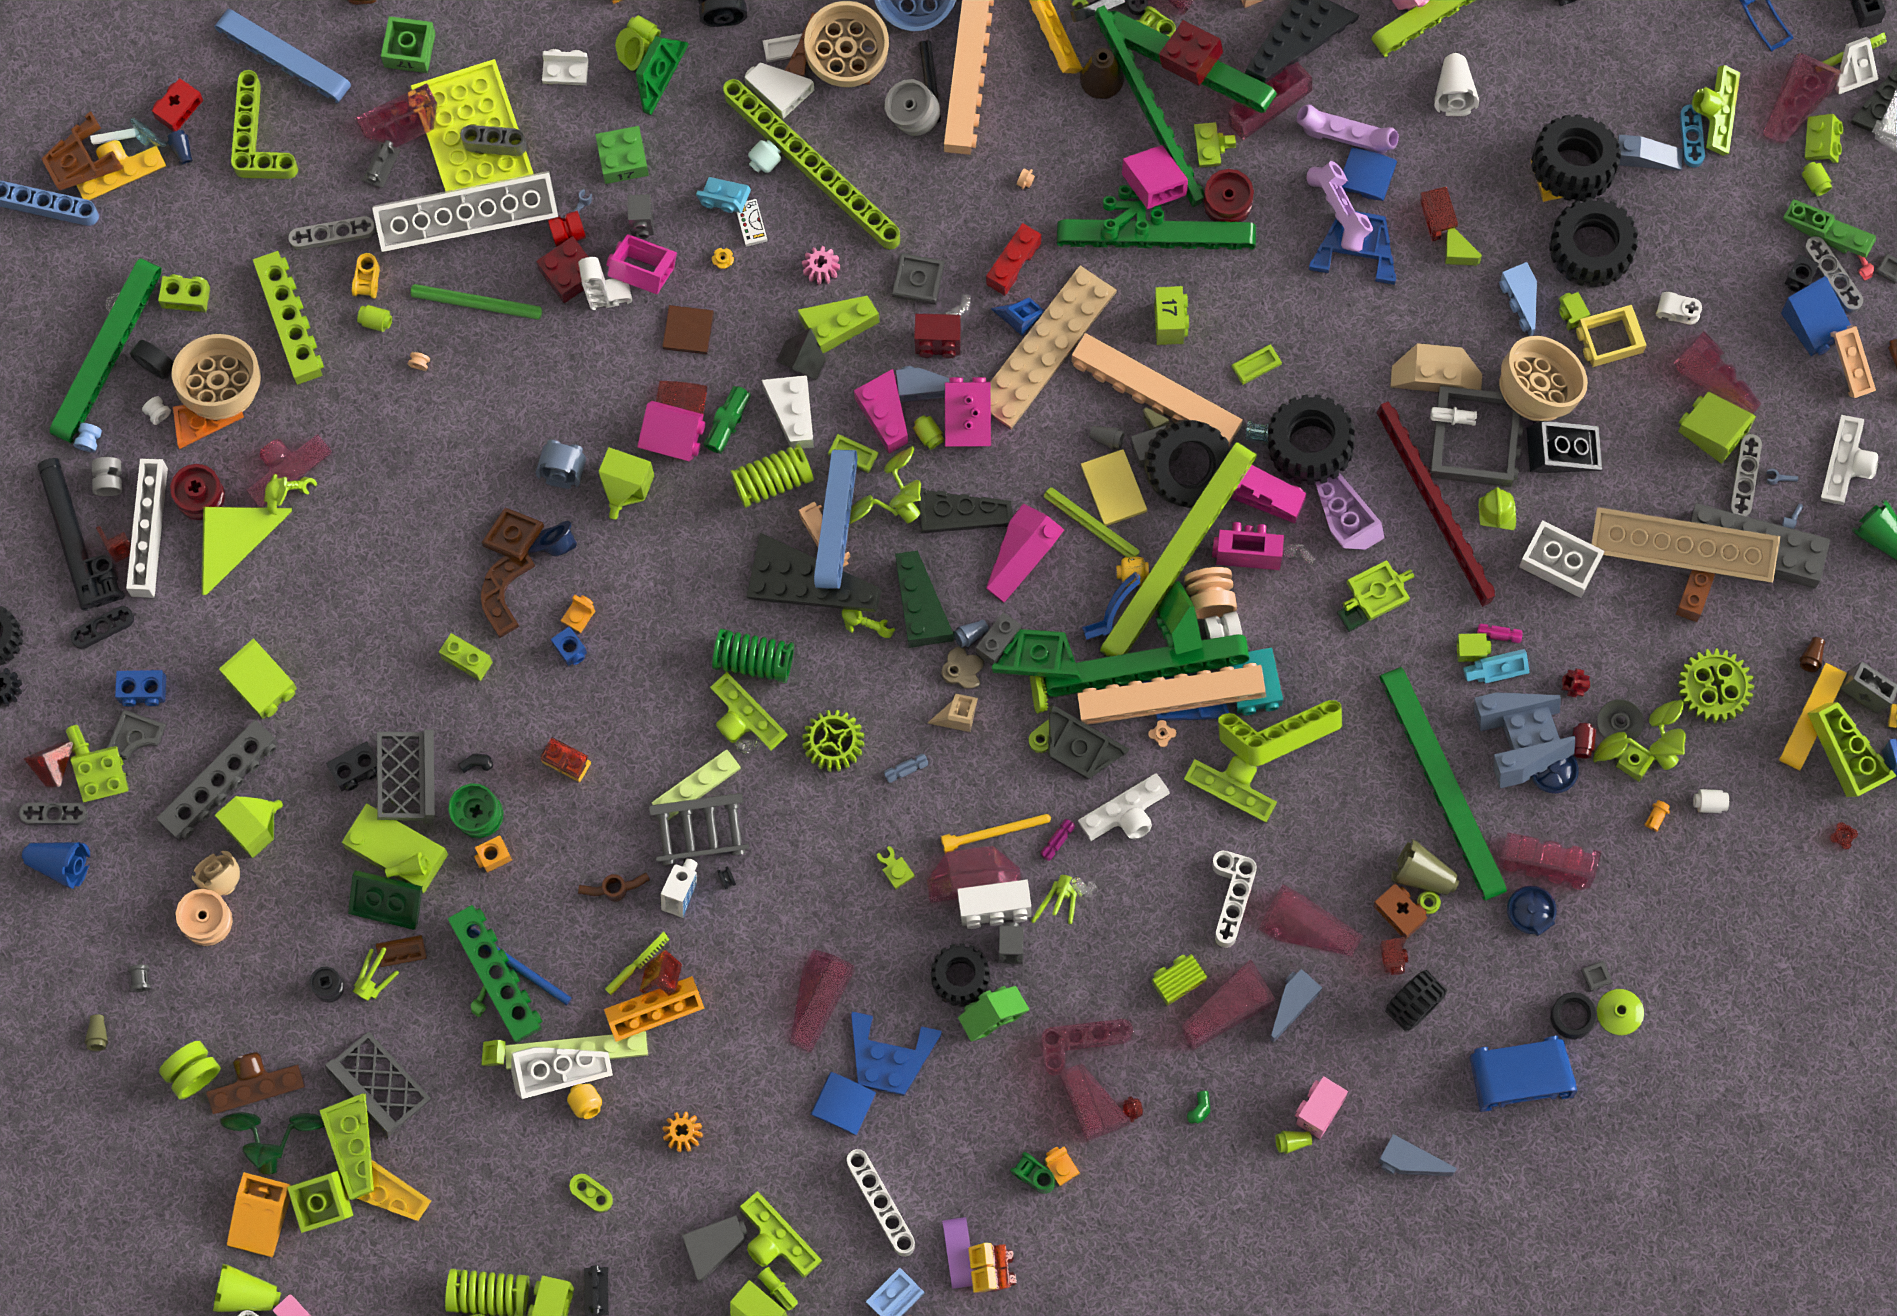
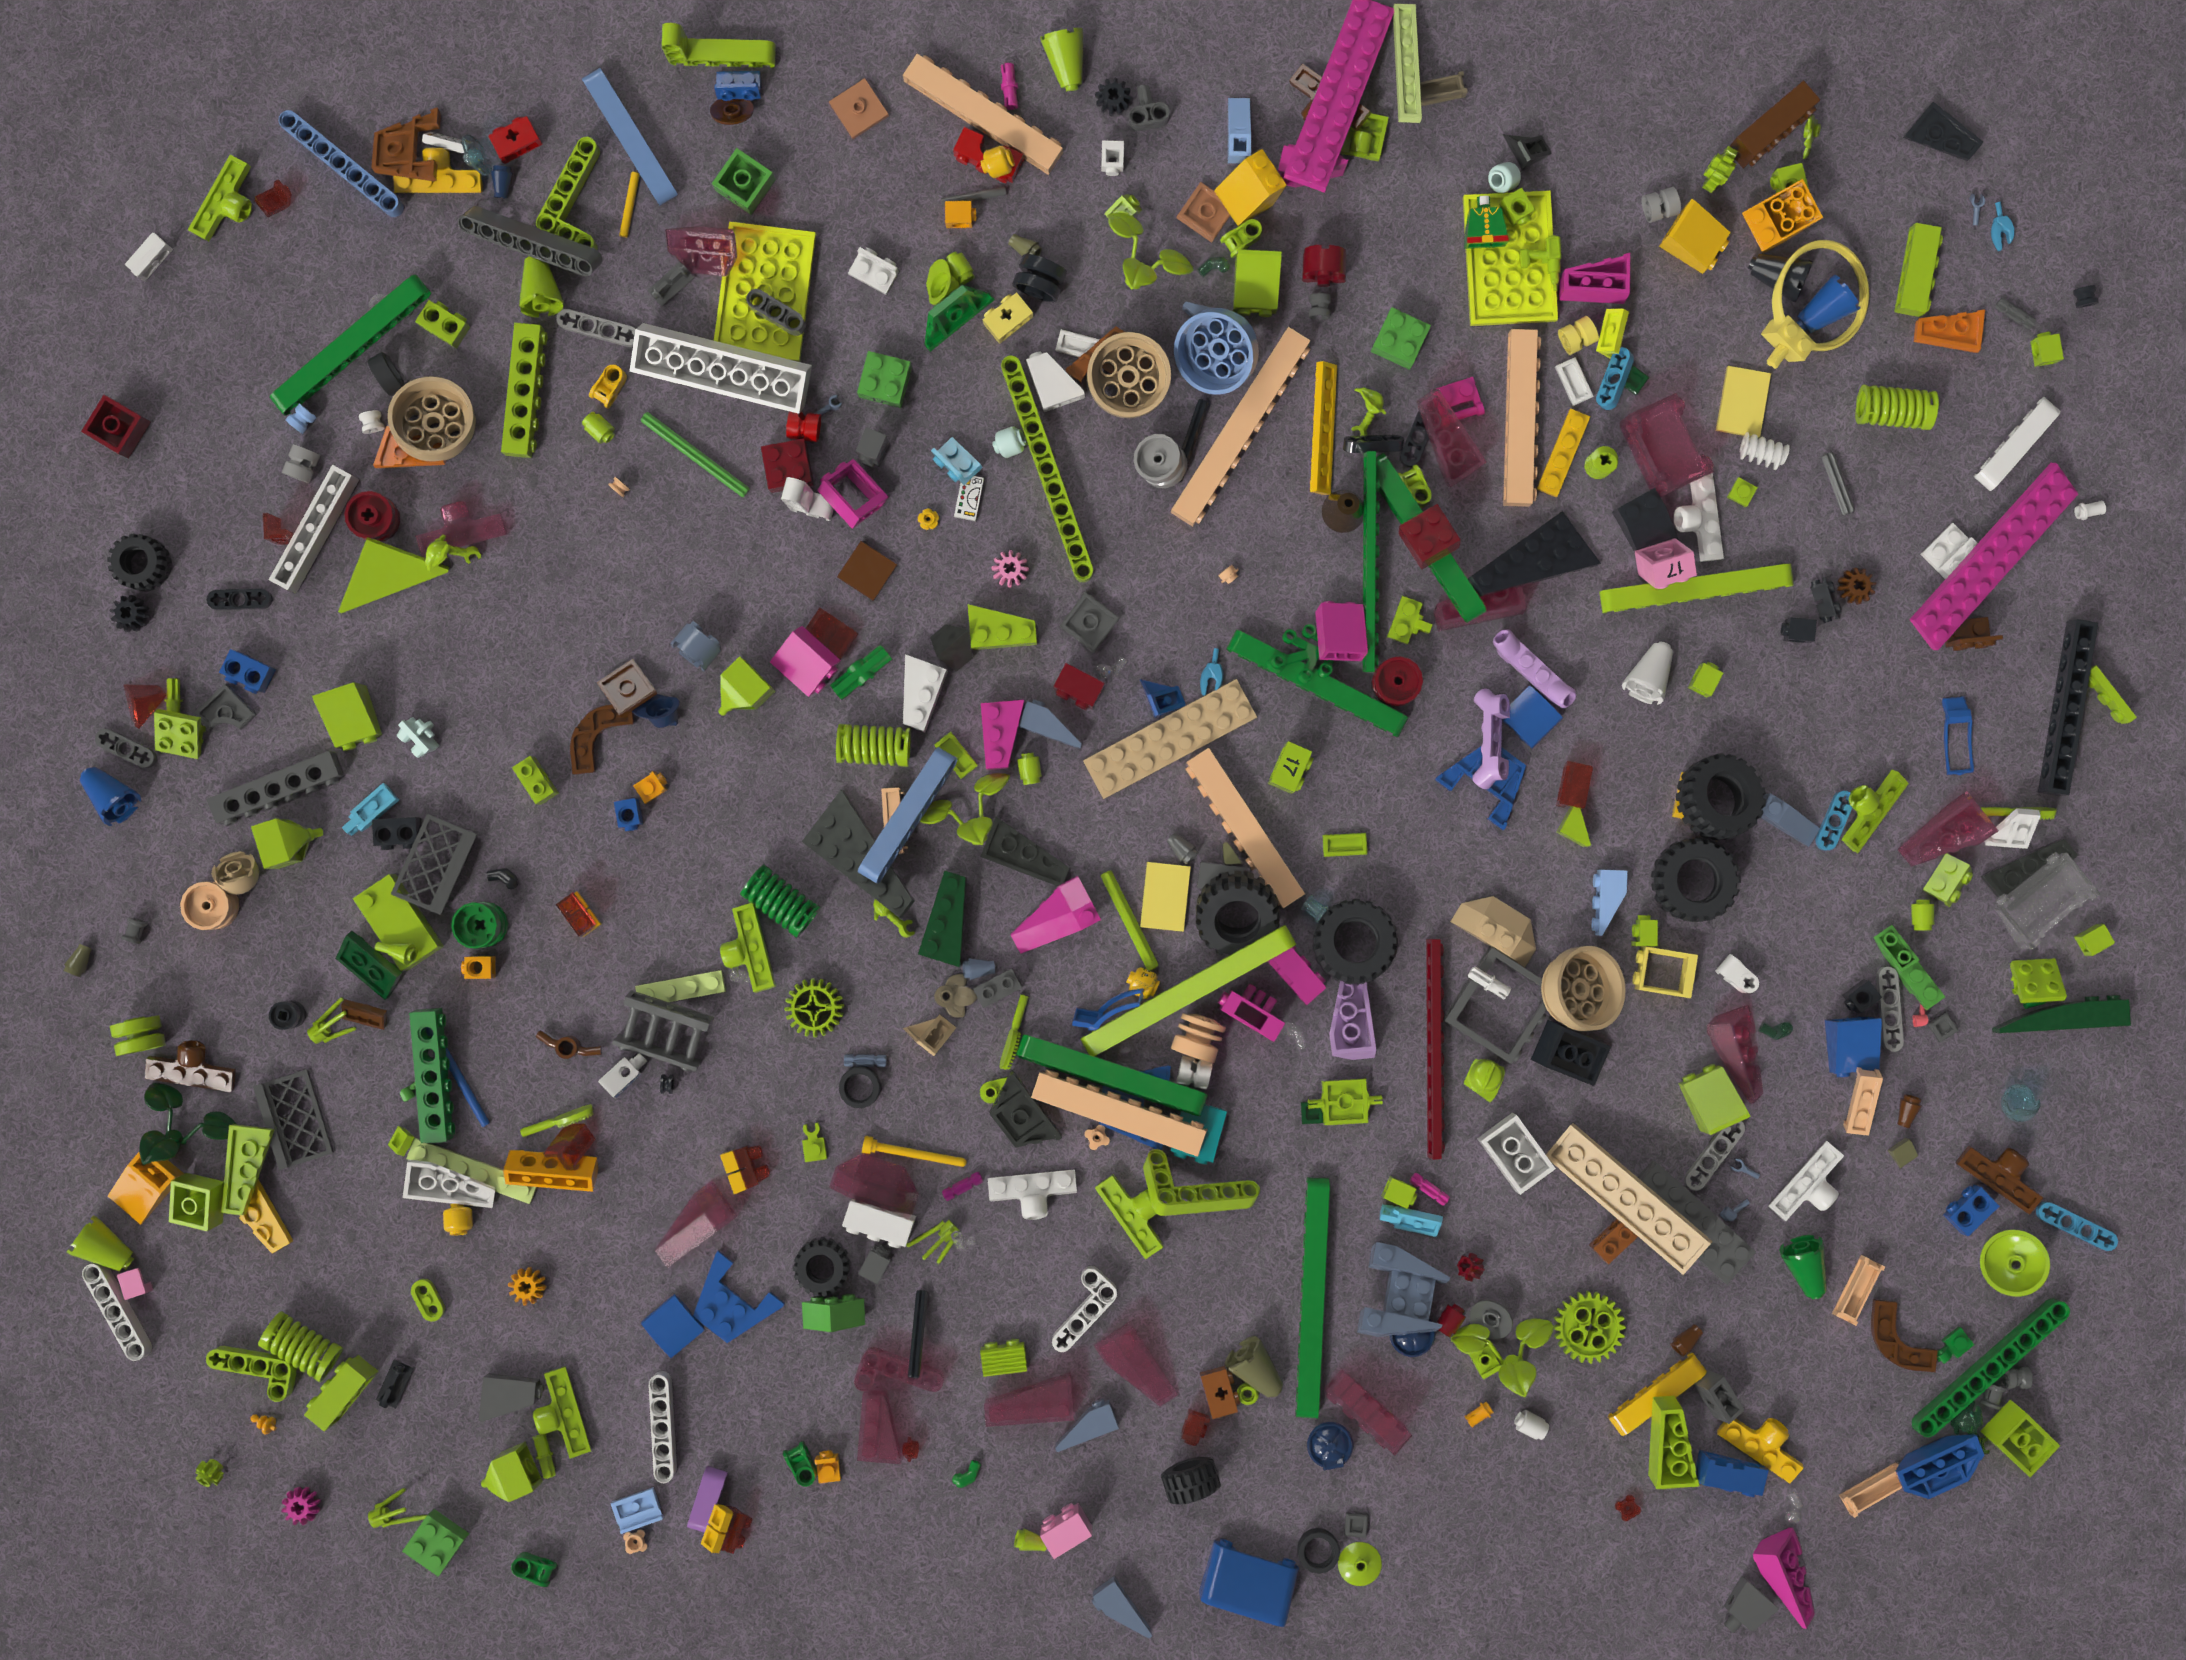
camera: 20 degrees right, 15 degrees up
(89, 583) = (245, 553): black piece -> none
(242, 176) = (530, 241): none -> dark grey beam
(262, 221) = (539, 289): none -> lime cone
(315, 138) = (629, 204): none -> yellow bar
(315, 762) = (370, 809): none -> medium azure hinge
(323, 668) = (420, 735): none -> light aqua hips
(708, 63) = (1003, 328): none -> light yellow brick
(837, 921) = (743, 1158): none -> clear red hips
(911, 810) = (859, 1103): none -> black tyre
(968, 412) = (1069, 771): dark pink piece -> none
(1007, 266) = (1180, 646): red arch -> none
(1038, 655) = (1023, 1021): green wing -> none
(1054, 269) = (1213, 671): none -> dark azure hand
(1084, 993) = (917, 1334): none -> black axle
(1178, 621) = (1156, 1054): green slope -> none
(1508, 69) = (1705, 679): none -> lime brick
(1743, 342) = (1777, 1032): none -> clear green arm

